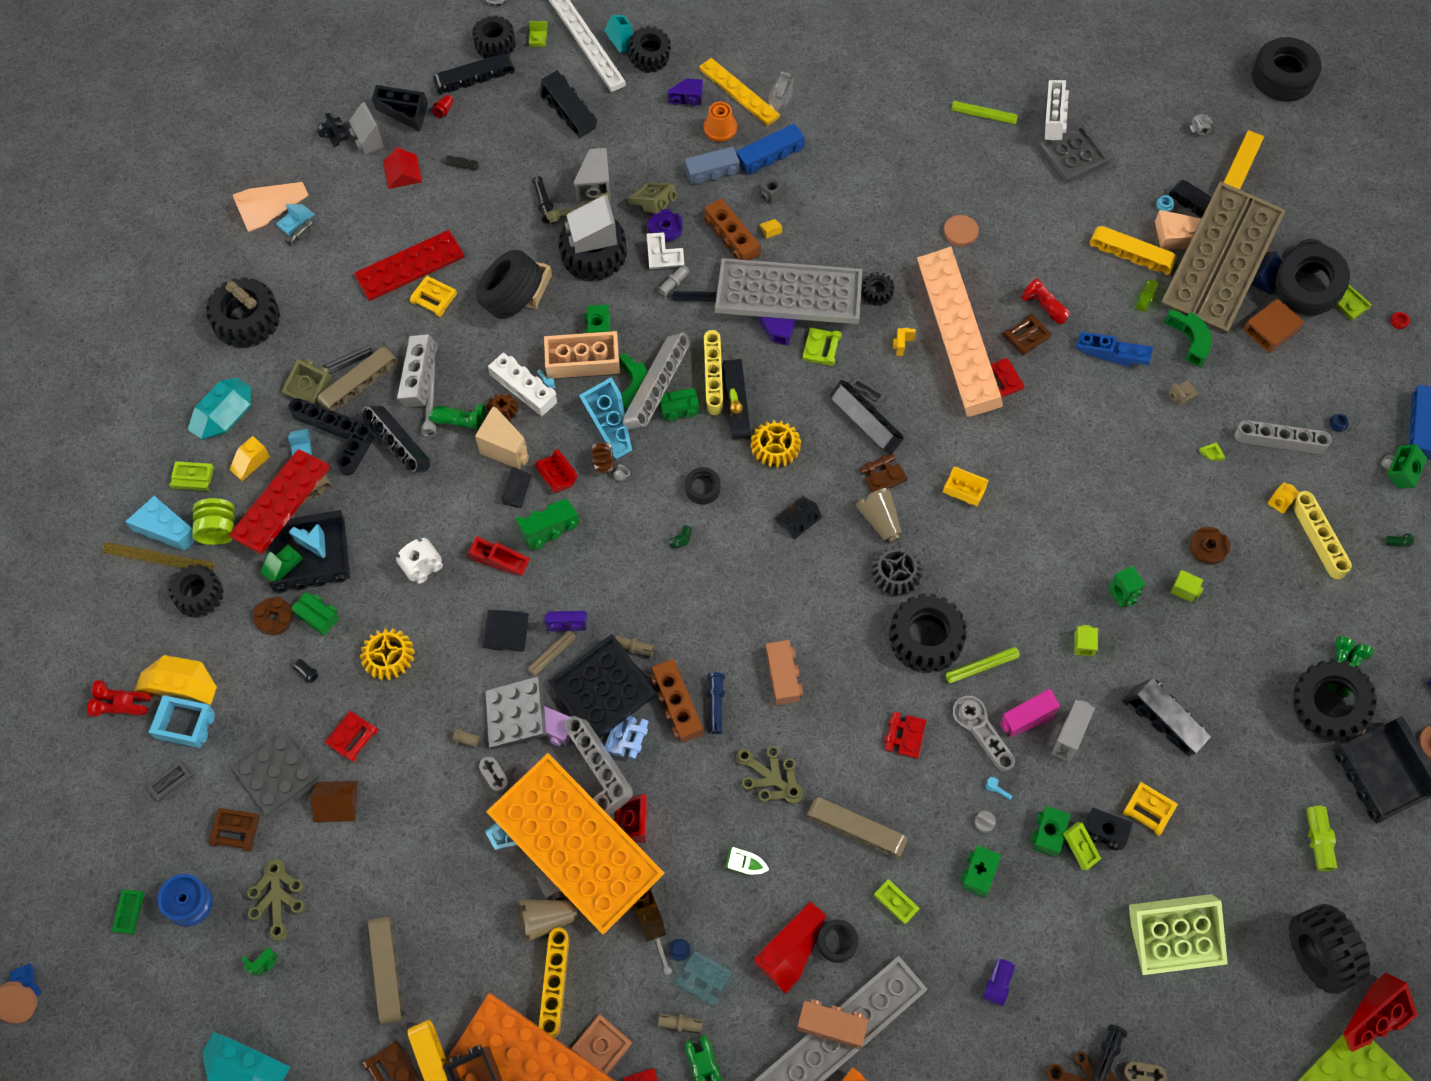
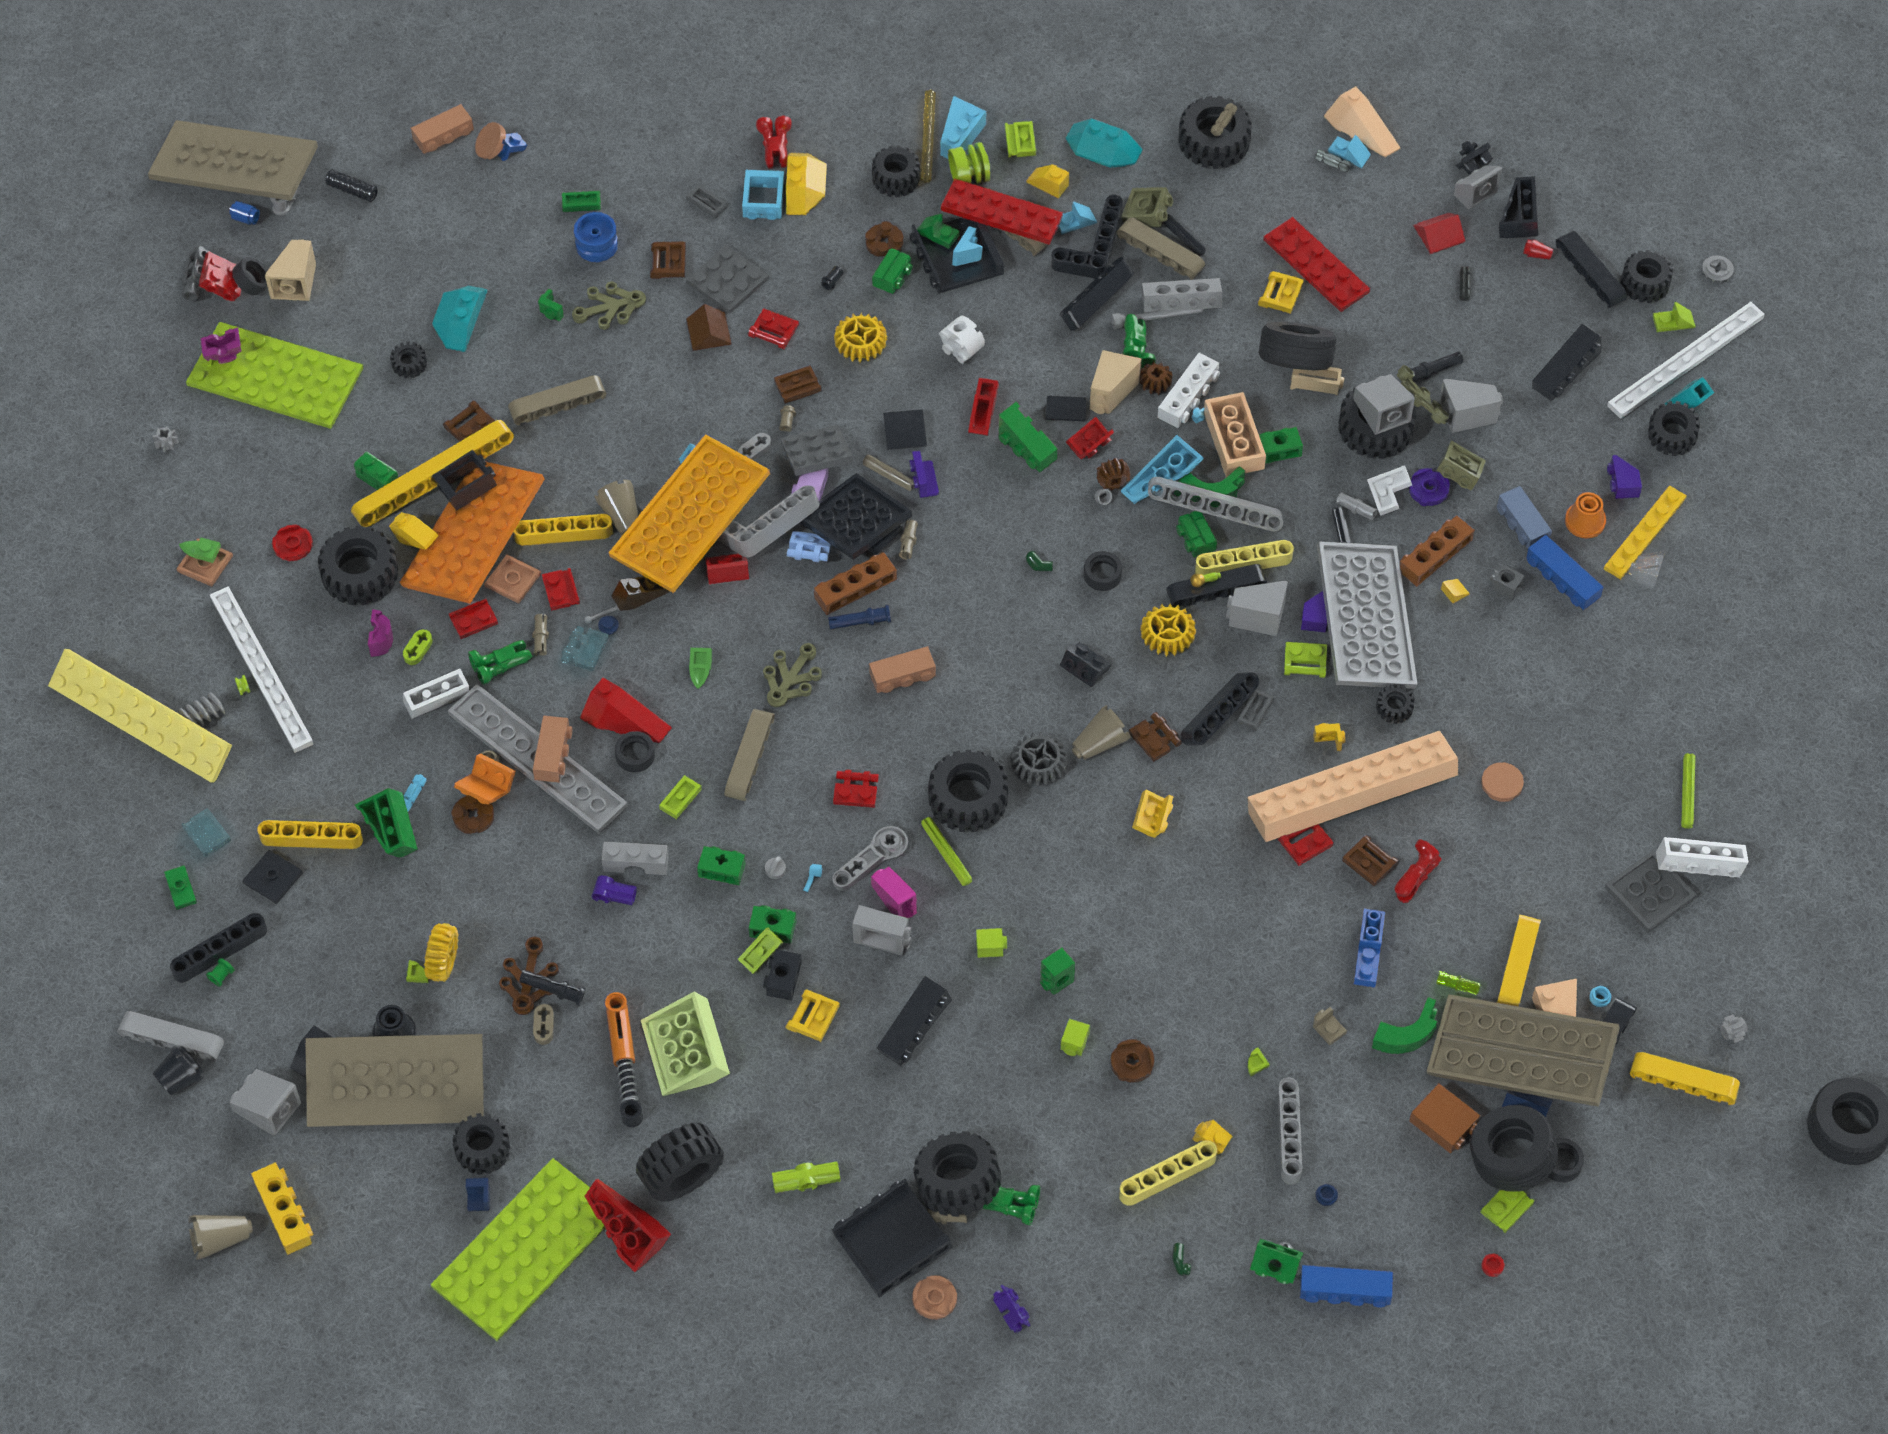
camera: 80 degrees right, 5 degrees down
(427, 722) = (797, 384): none -> reddish brown plate
(625, 995) = (560, 589): none -> red plate
(773, 365) = (1257, 607): none -> light grey slope
(966, 955) = (649, 857): none -> light grey arch
(1189, 995) = (623, 1058): none -> piece

